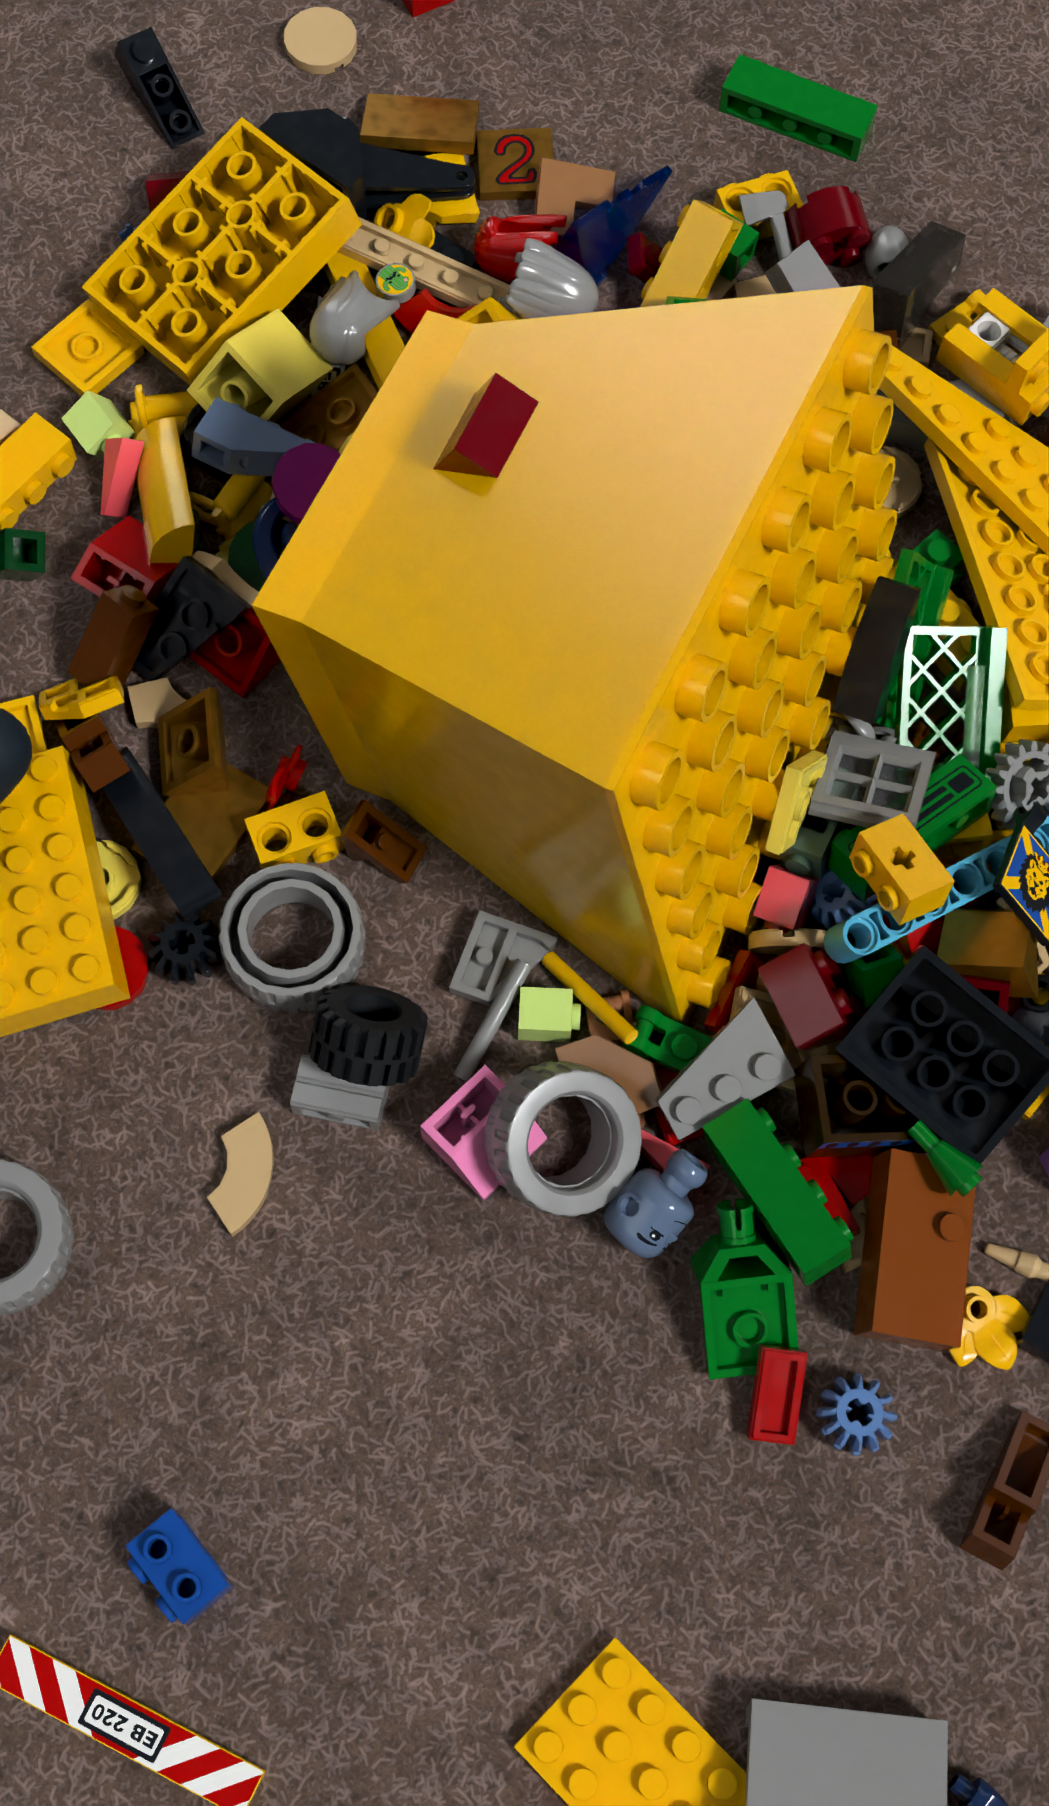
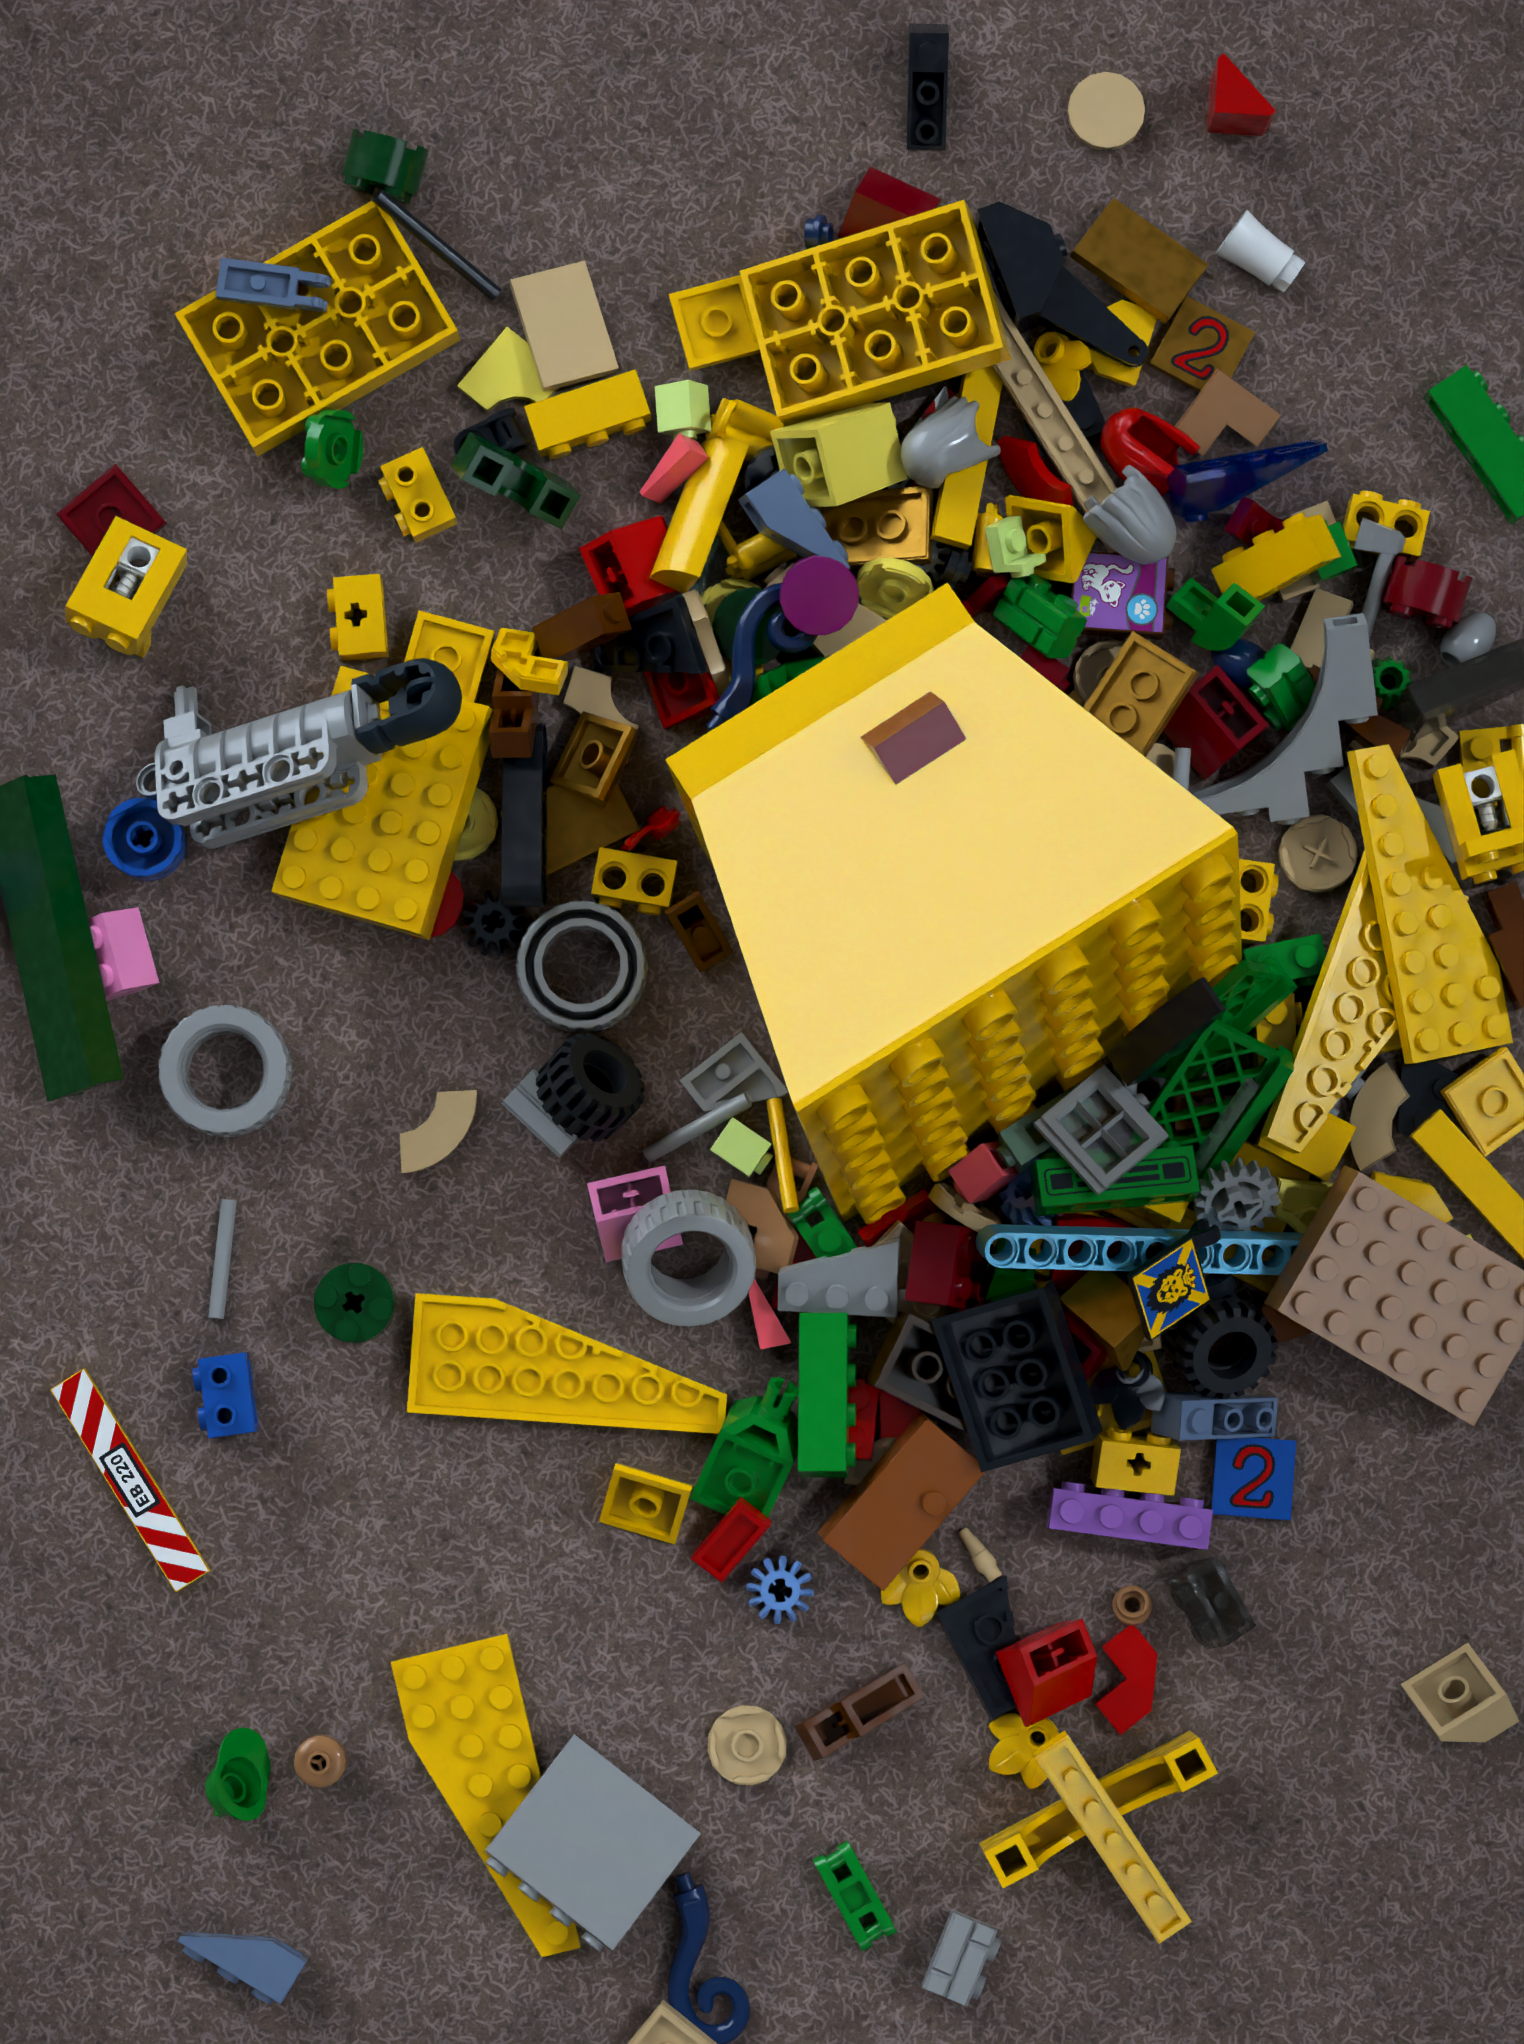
camera: 30 degrees right, 15 degrees up
(96, 1431) = (222, 1258): none -> light grey bar
(250, 1362) = (332, 1298): none -> dark green brick
(396, 282) = (1011, 425): tile -> none
(457, 1354) = (516, 1366): none -> yellow wing
(516, 68) = (1260, 253): none -> white plant
(655, 1205) = (727, 1349): sand blue piece -> none
(670, 1410) = (645, 1503): none -> yellow slope
(794, 800) = (1025, 1110): light yellow tile -> none
(901, 869) = (1075, 1201): yellow brick -> none
(908, 1598) = (747, 1732): none -> tan tile
(951, 1165) = (960, 1460): green cone -> none

